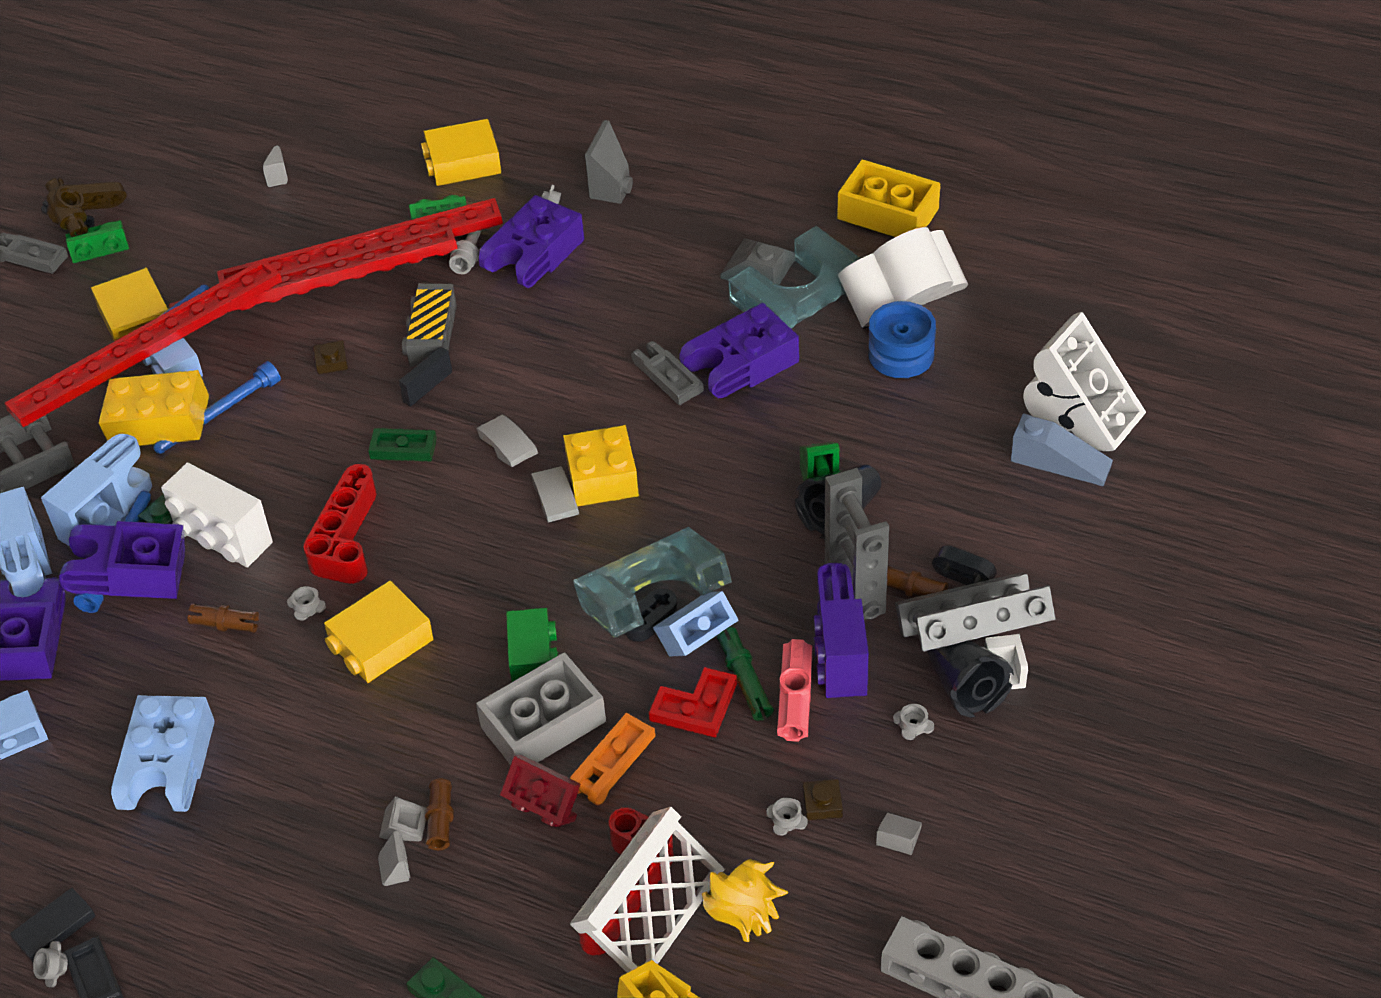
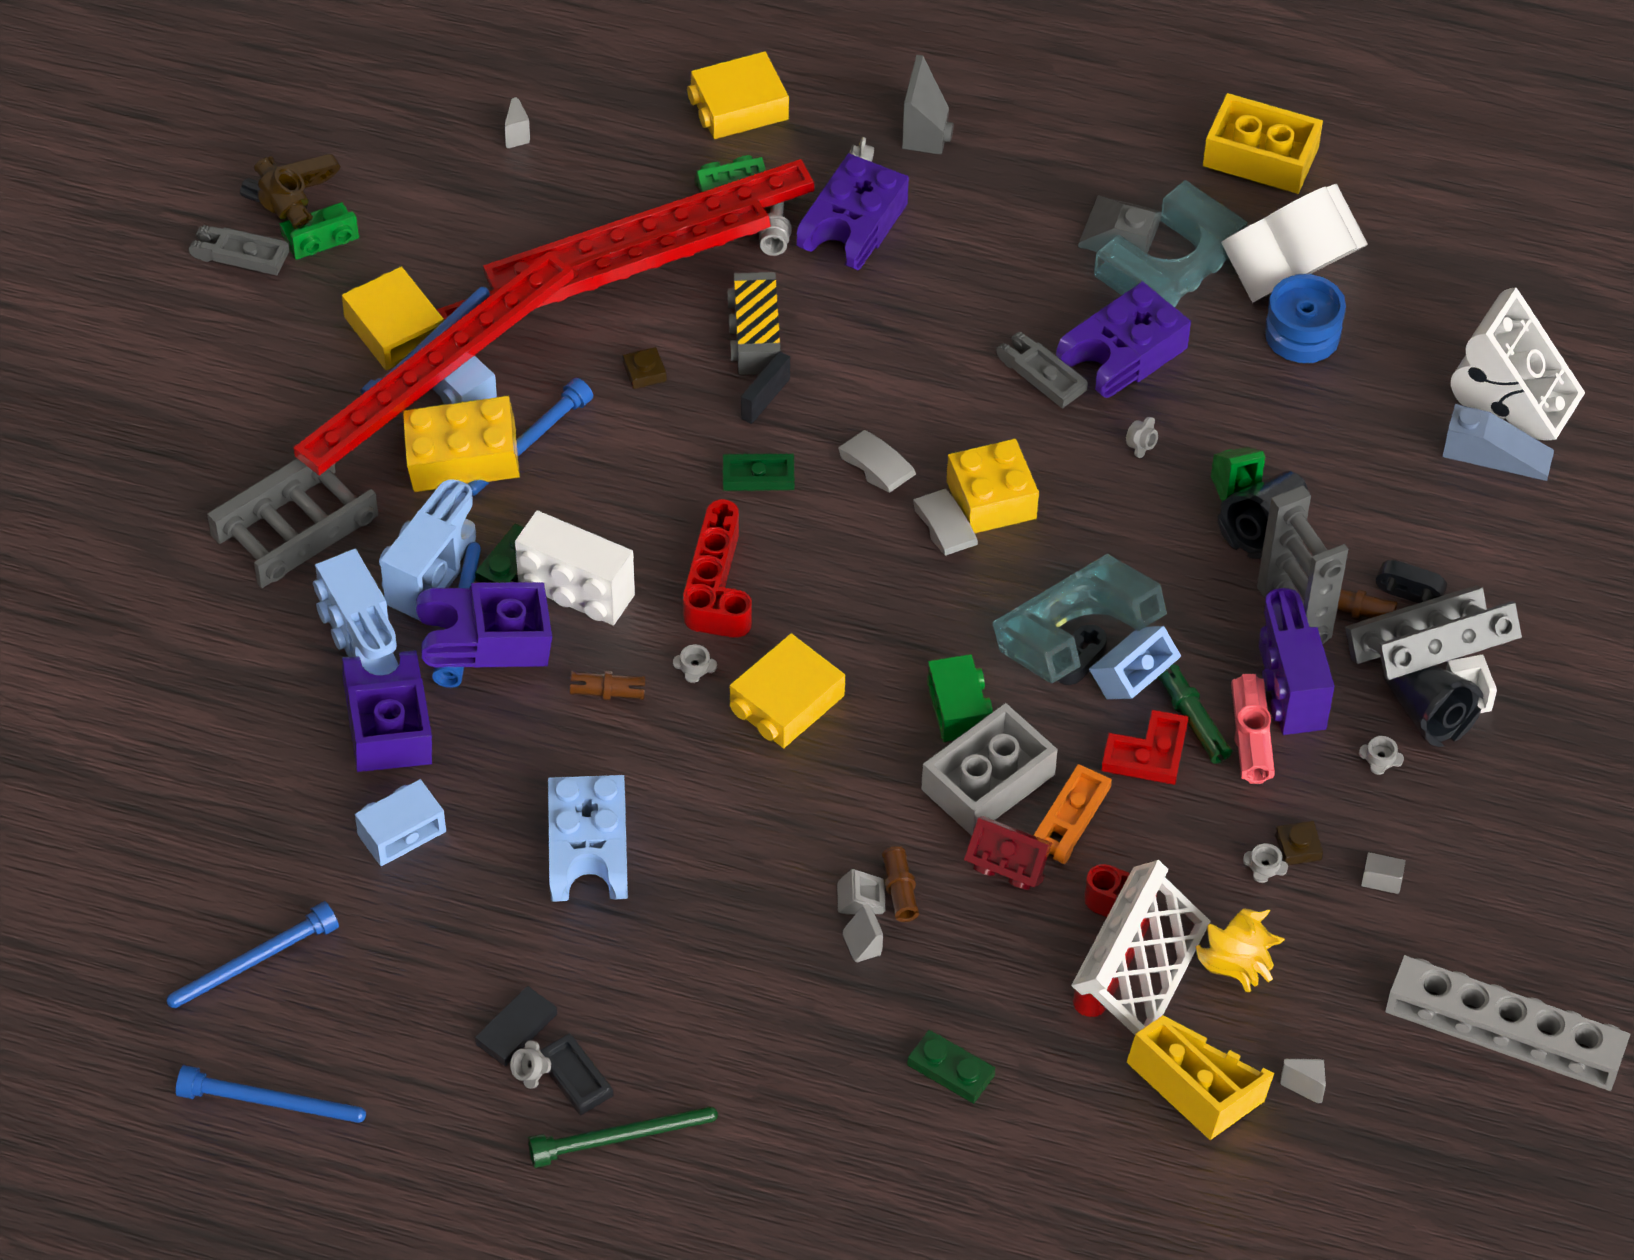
camera: 10 degrees left, 5 degrees up
(742, 430) = (1142, 436): none -> light grey plate

